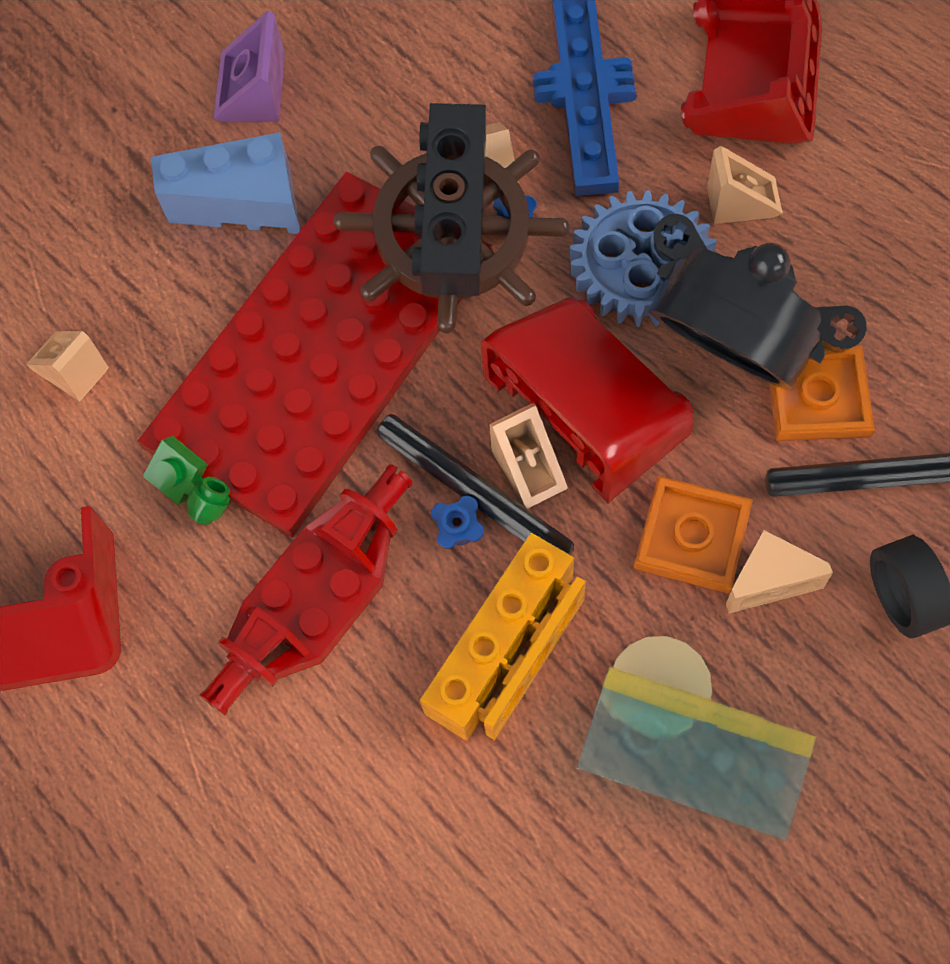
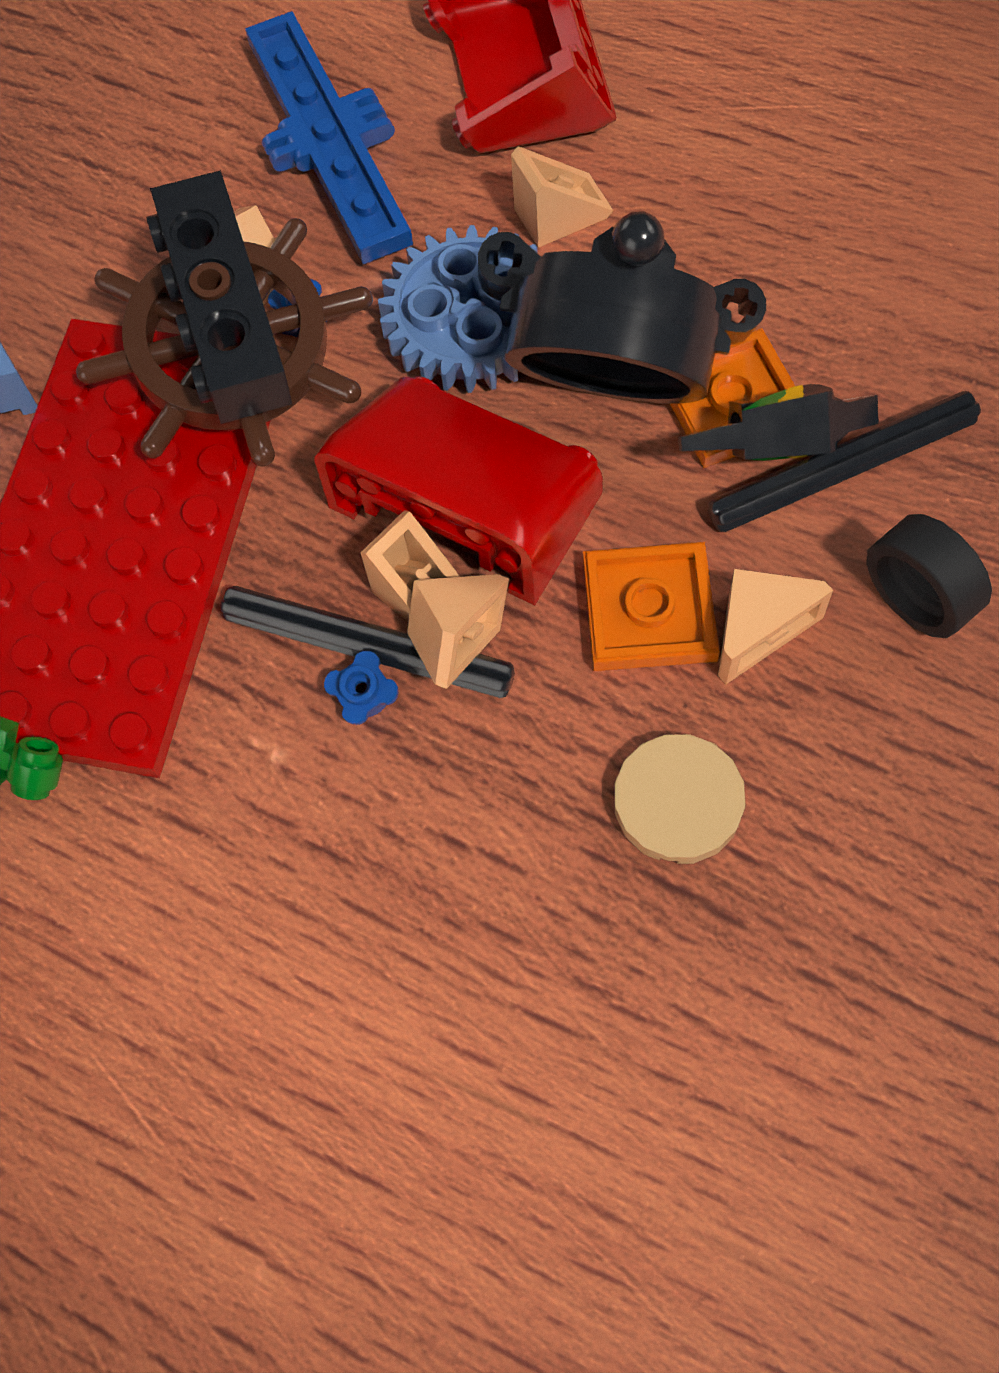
camera: 20 degrees left, 0 degrees up
(311, 591) = (206, 836): red plate -> none
(497, 636) = (460, 807): light orange brick -> none
(542, 497) = (455, 621): none -> light nougat slope
(697, 752) = (754, 858): clear light blue slope -> none
(849, 431) = (786, 424): none -> black animal

